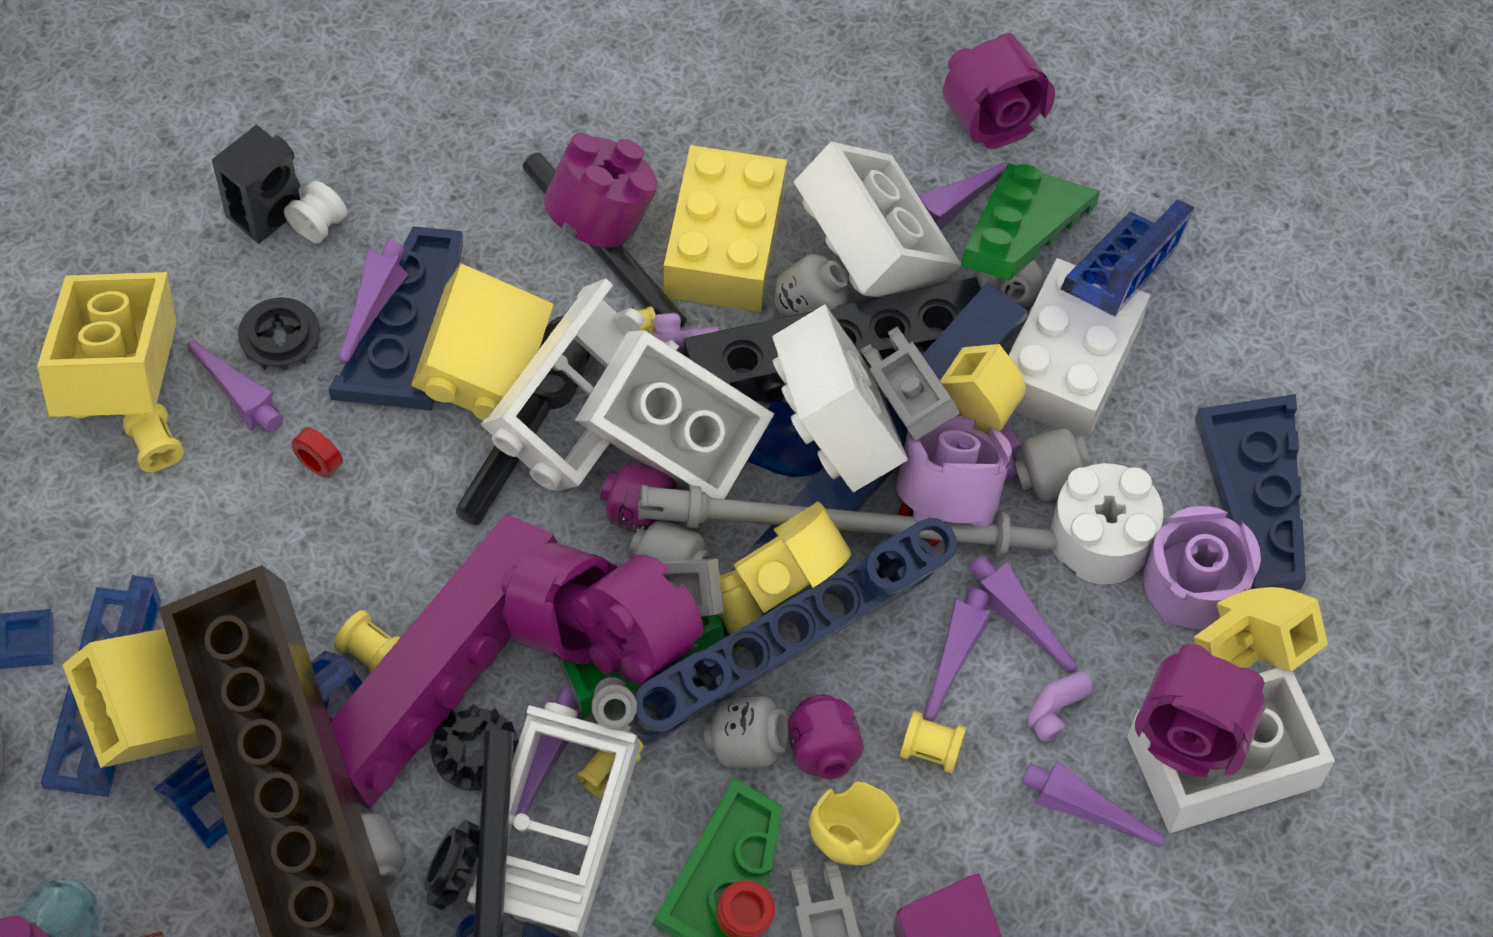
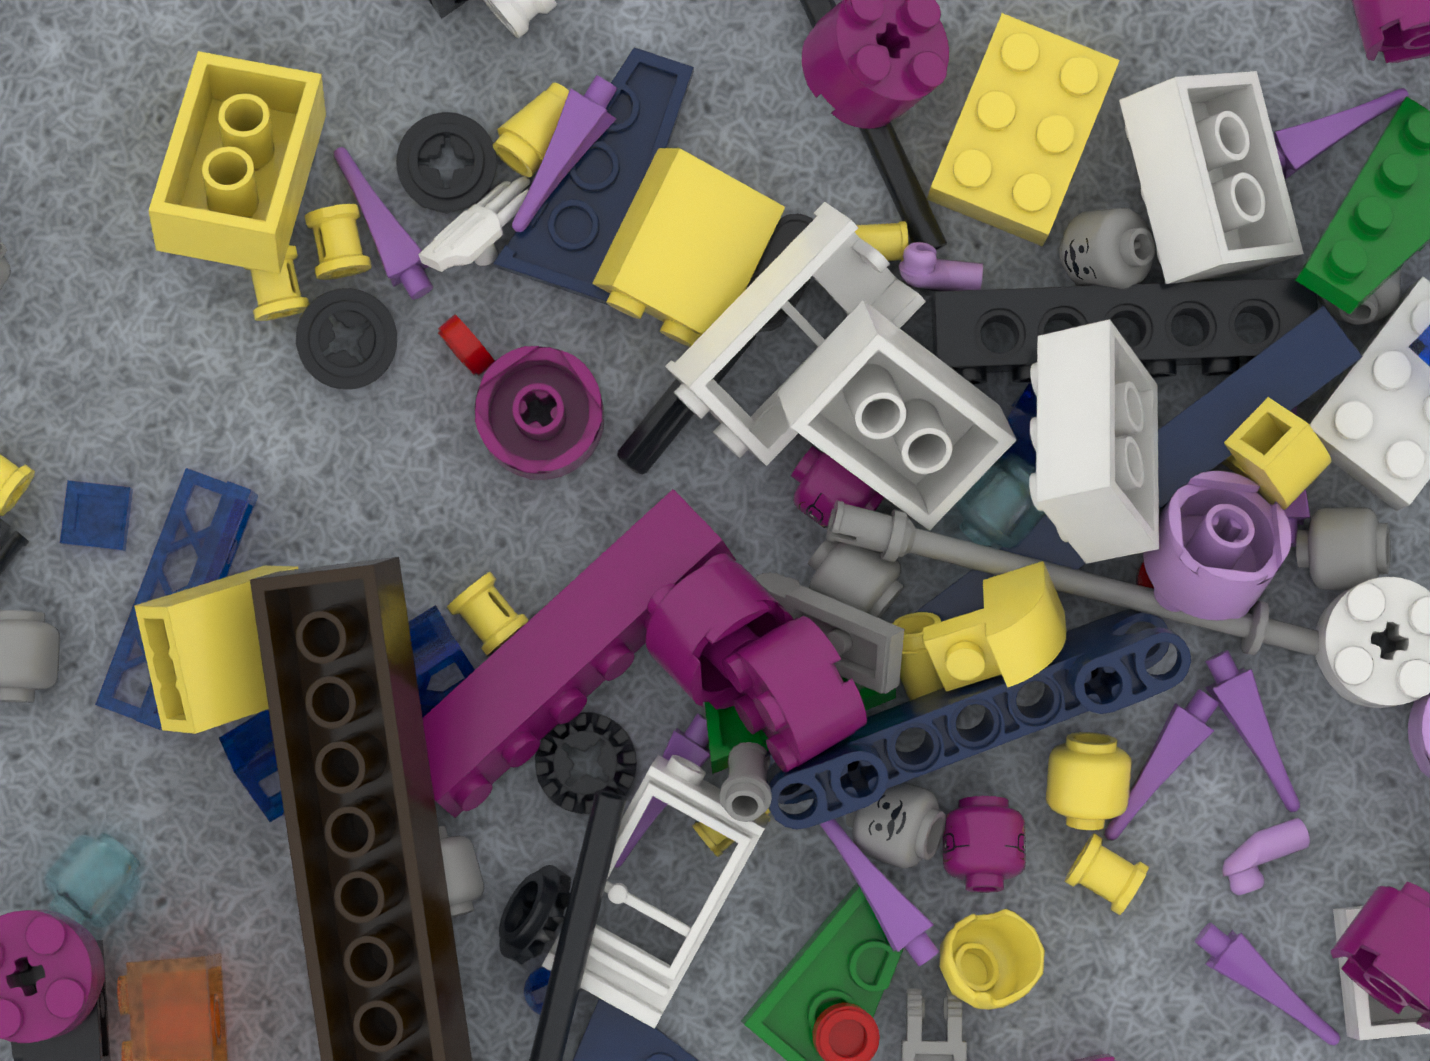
camera: 15 degrees right, 25 degrees up
(199, 399) = (337, 241): none -> light yellow bush
(218, 445) = (376, 343): none -> black gear
(309, 371) = (476, 229): none -> white piece
(339, 300) = (528, 133): none -> light yellow cone
(385, 483) = (548, 377): none -> magenta brick
(764, 798) = (895, 913): none -> medium lavender piece
(775, 474) = (1000, 505): none -> clear light blue head
(898, 671) = (1088, 780): none -> light yellow head
(911, 386) = (1188, 438): light grey hinge -> none

